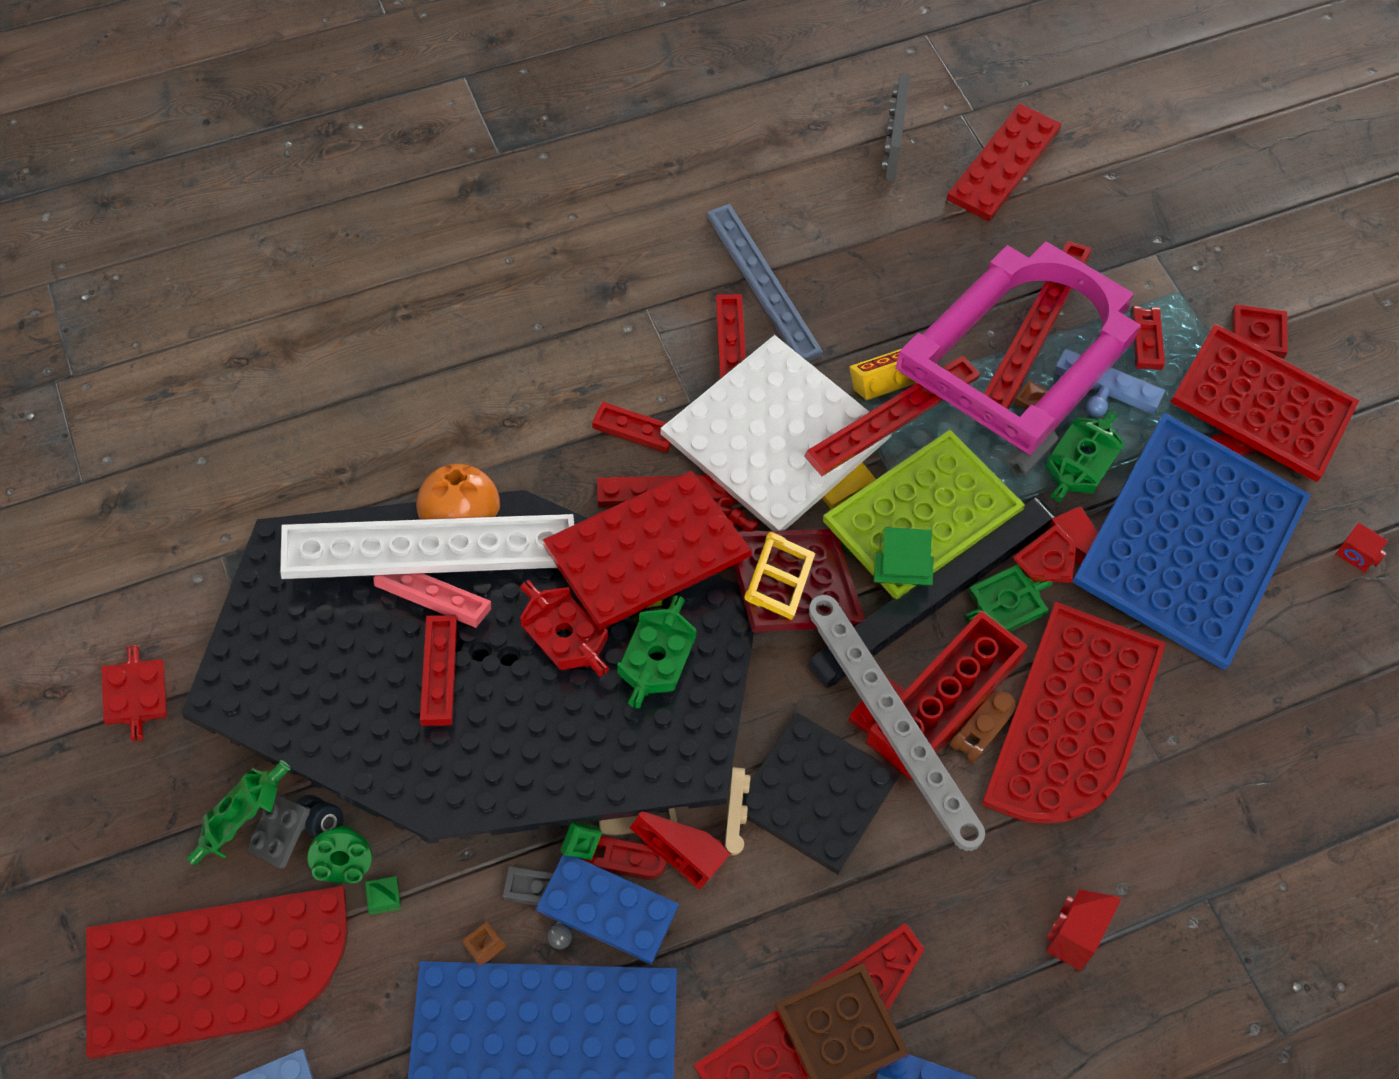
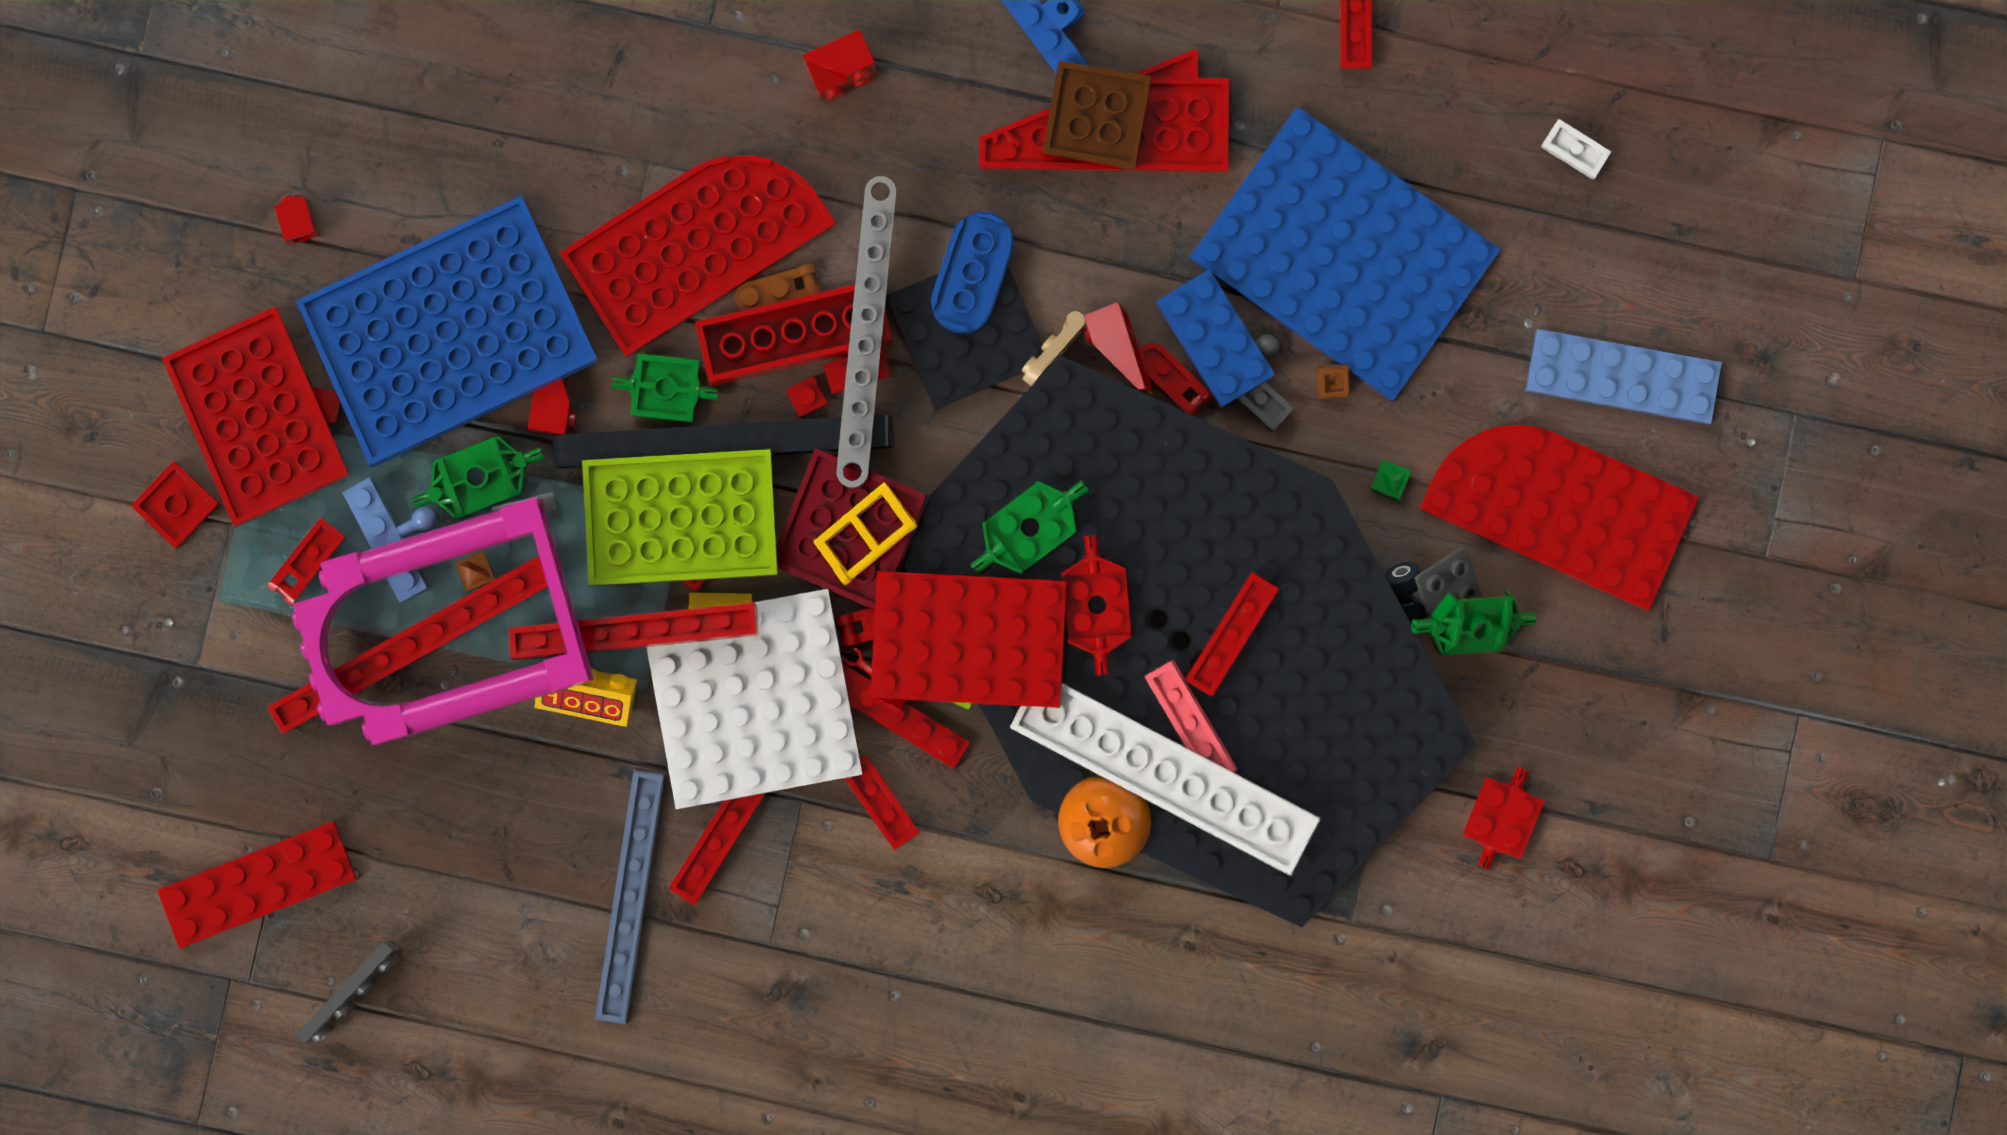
camera: 140 degrees left, 25 degrees up
(339, 856) = (1407, 533): green plate -> none
(581, 841) = (1203, 404): green tile -> none
(846, 831) = (972, 272): none -> blue tile
(900, 662) = (806, 397): none -> red plate
(904, 557) = (742, 473): green plate -> none
(1049, 557) = (598, 397): red plate -> none

